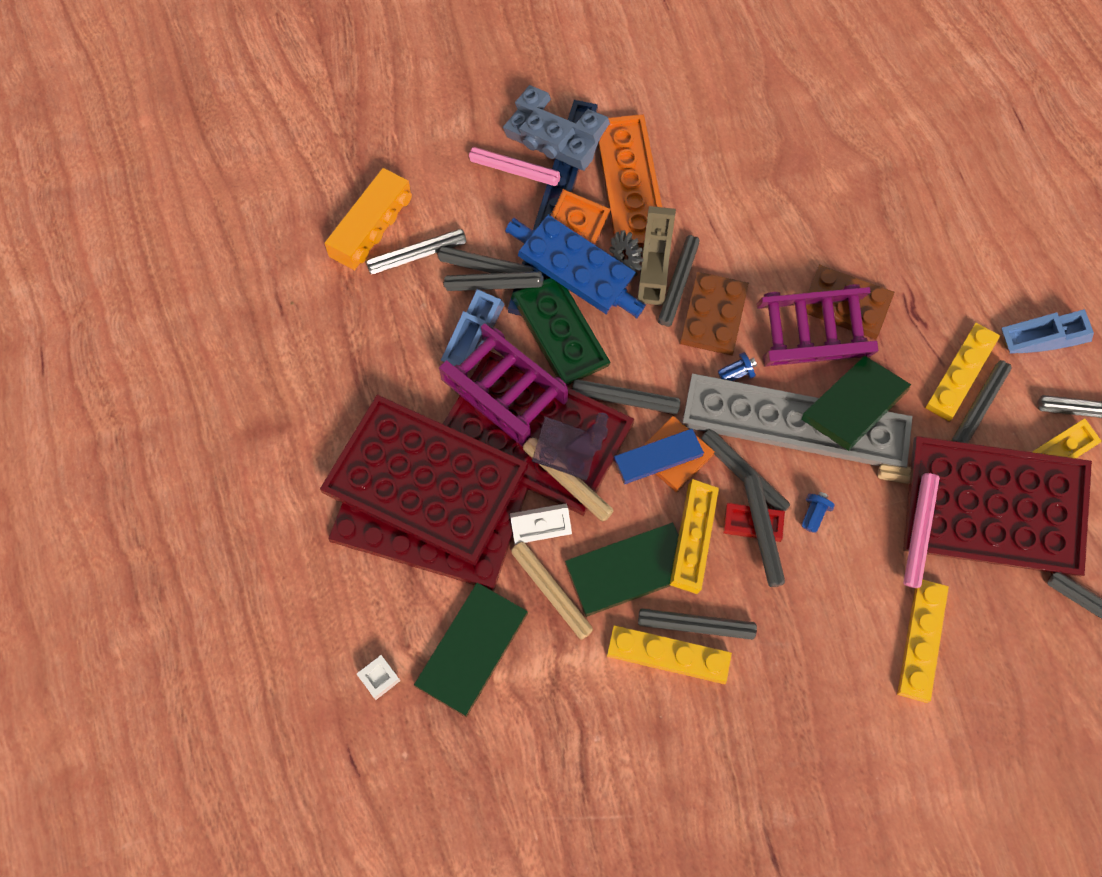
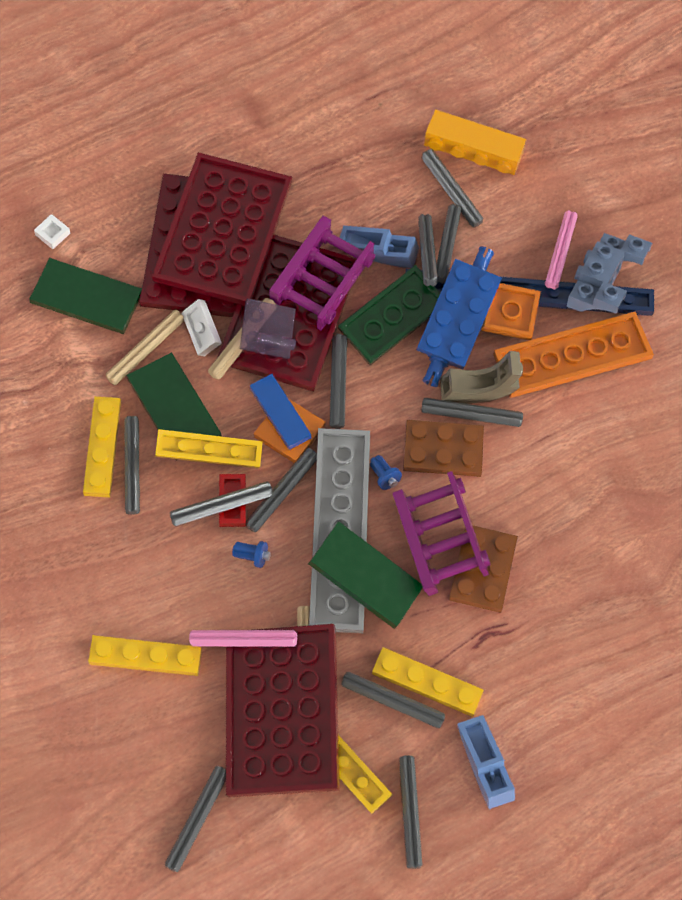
camera: 75 degrees right, 0 degrees up
(623, 242) = (483, 356): dark grey gear -> none

